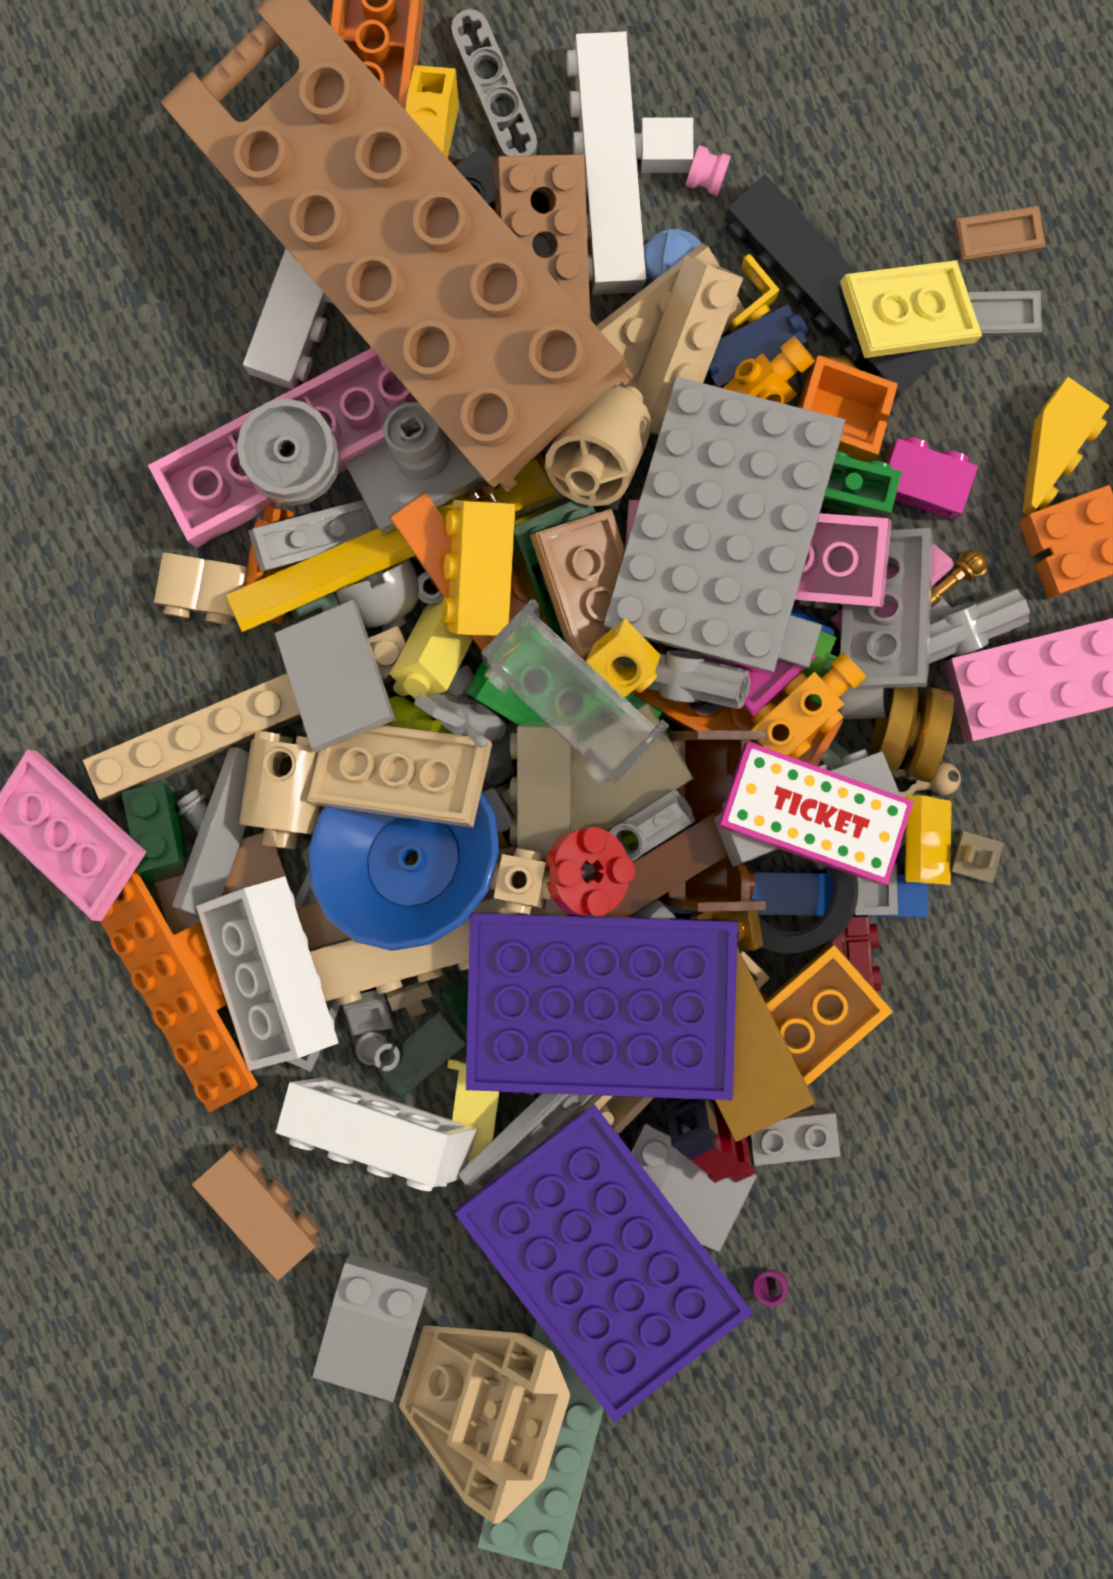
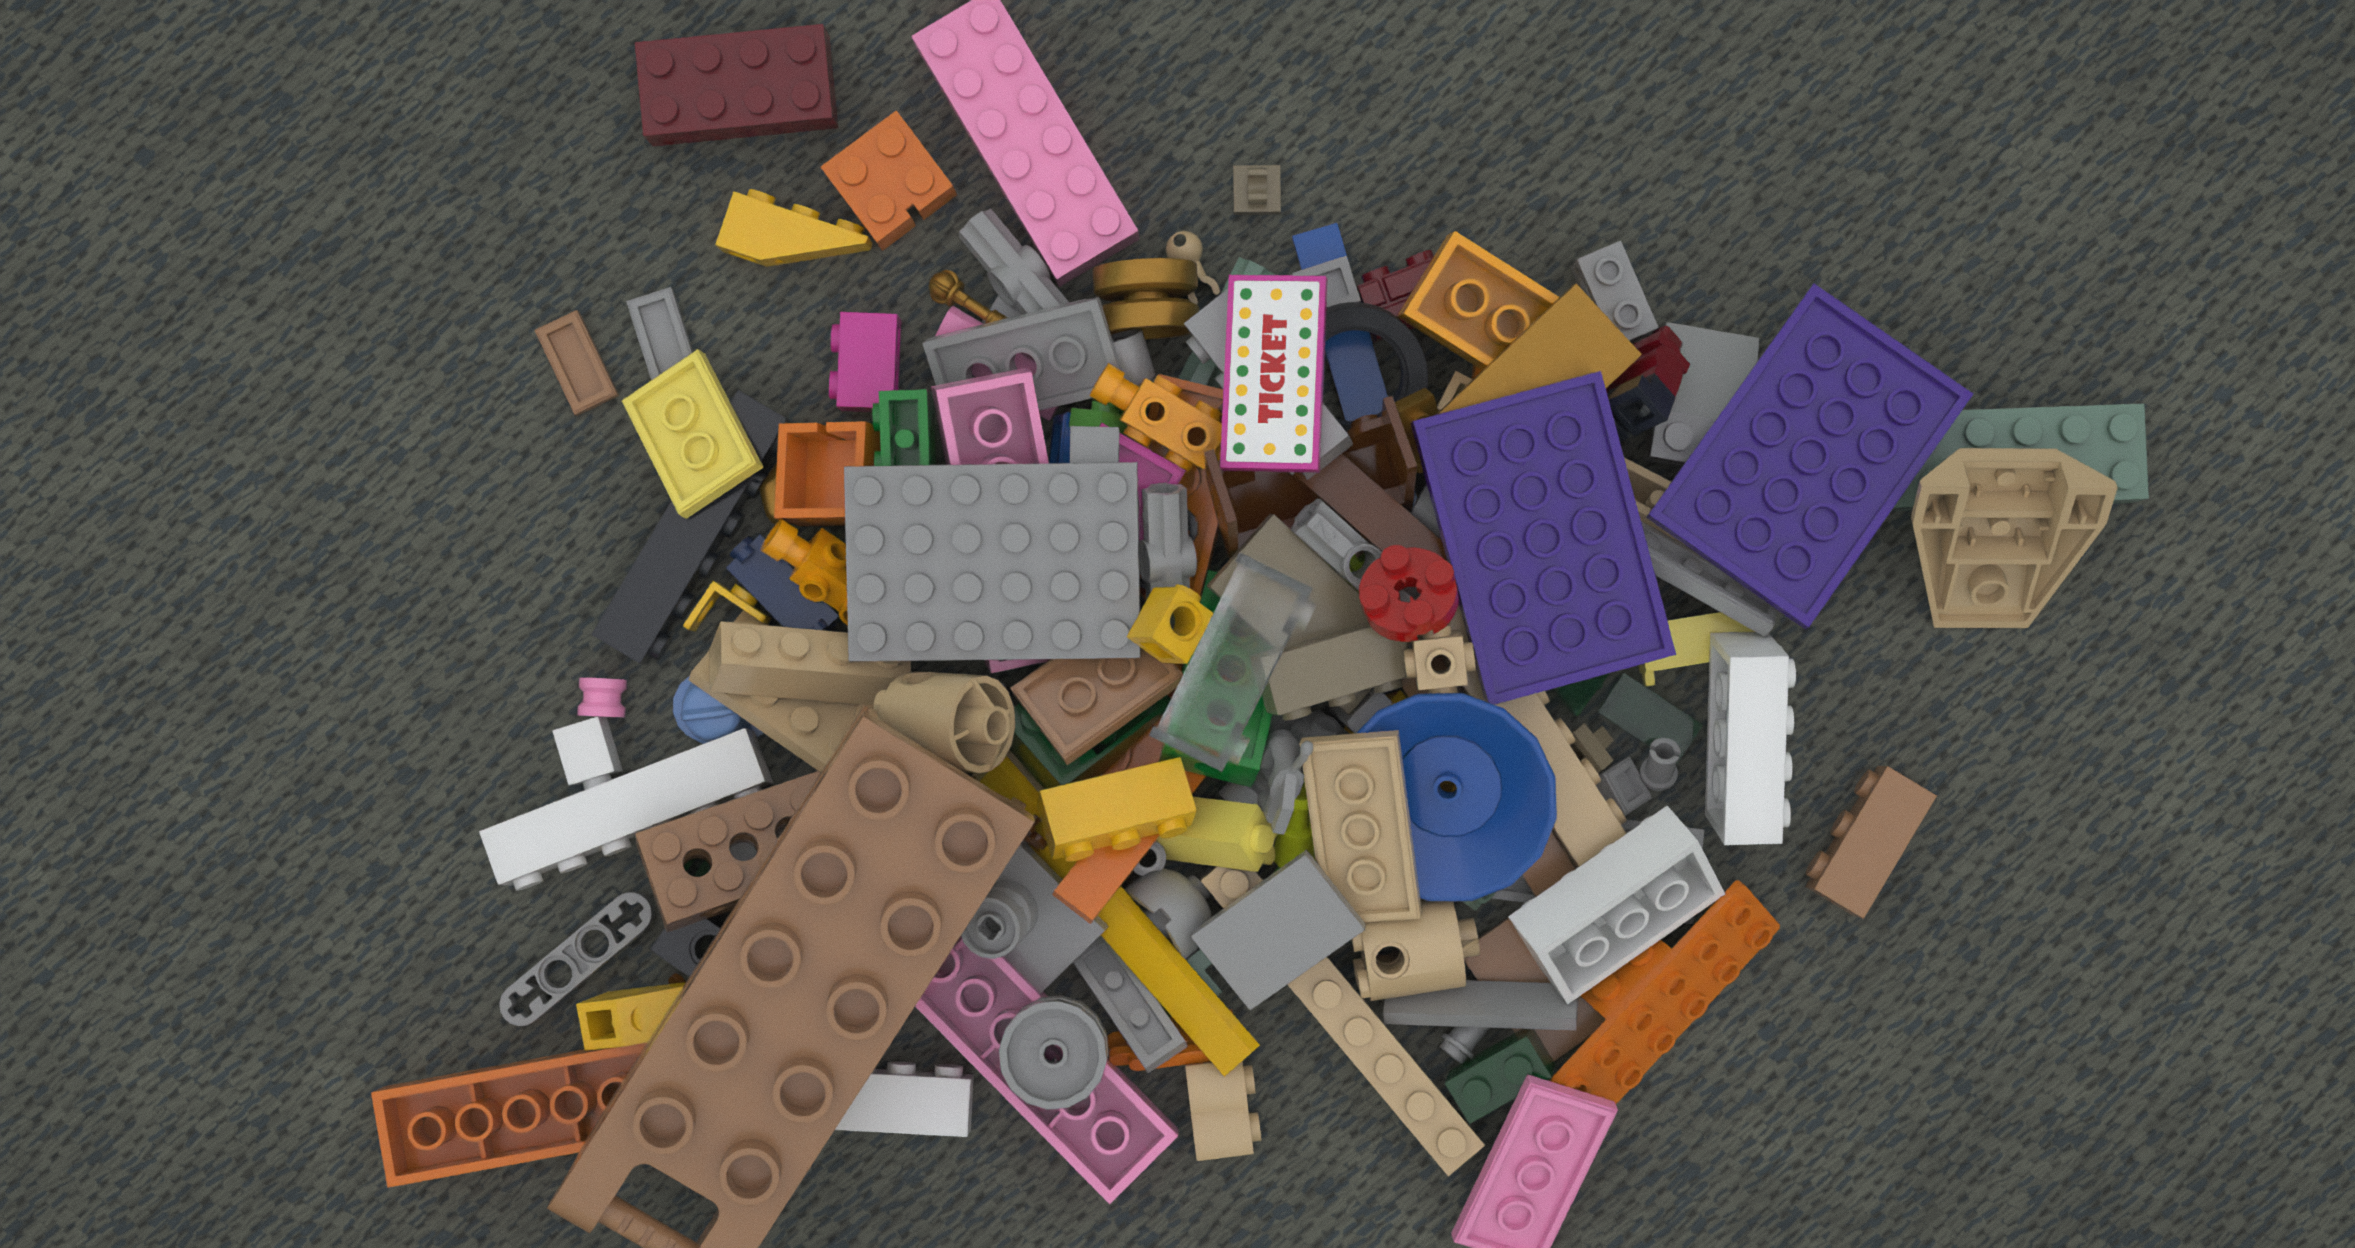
camera: 100 degrees left, 0 degrees up
(370, 1327) = (1953, 682): light grey slope -> none
(762, 1287) = (1784, 280): magenta hinge -> none
(928, 841) = (1258, 245): yellow tile -> none

